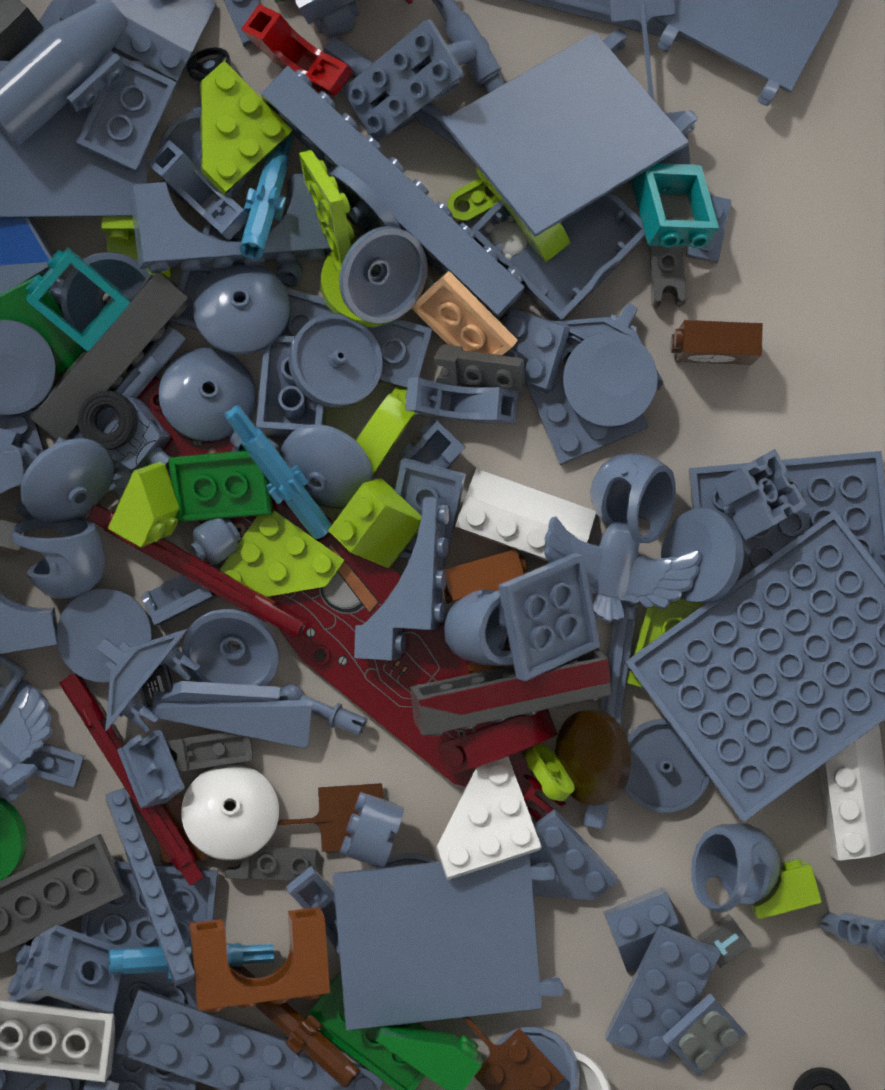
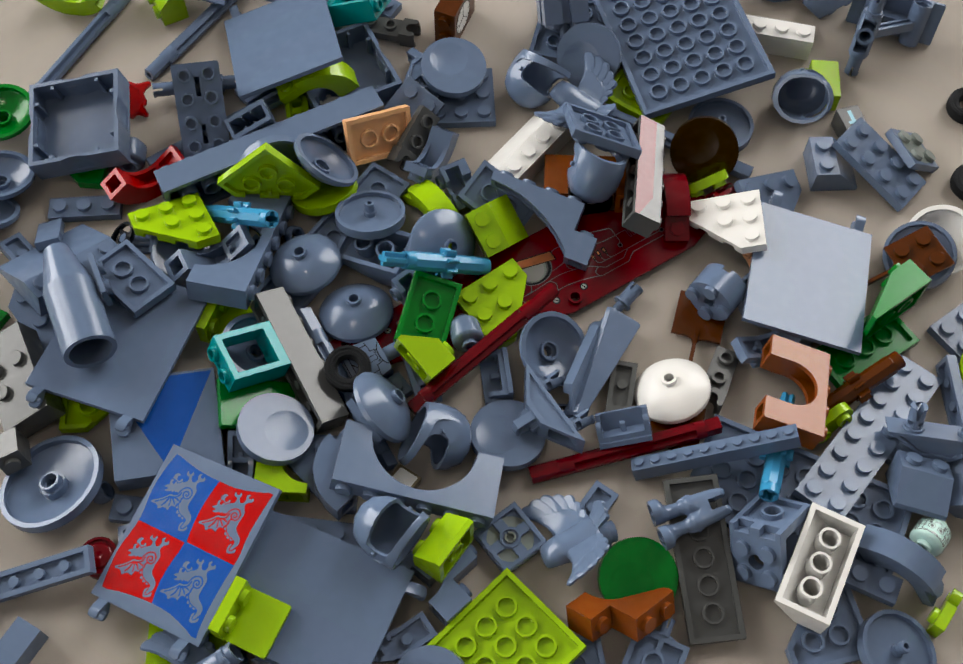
camera: 70 degrees left, 25 degrees down
(58, 886) = (698, 514): none -> sand blue piece
(257, 1023) = (837, 418): none -> lime plate
(425, 162) = (250, 119): none -> sand blue torso

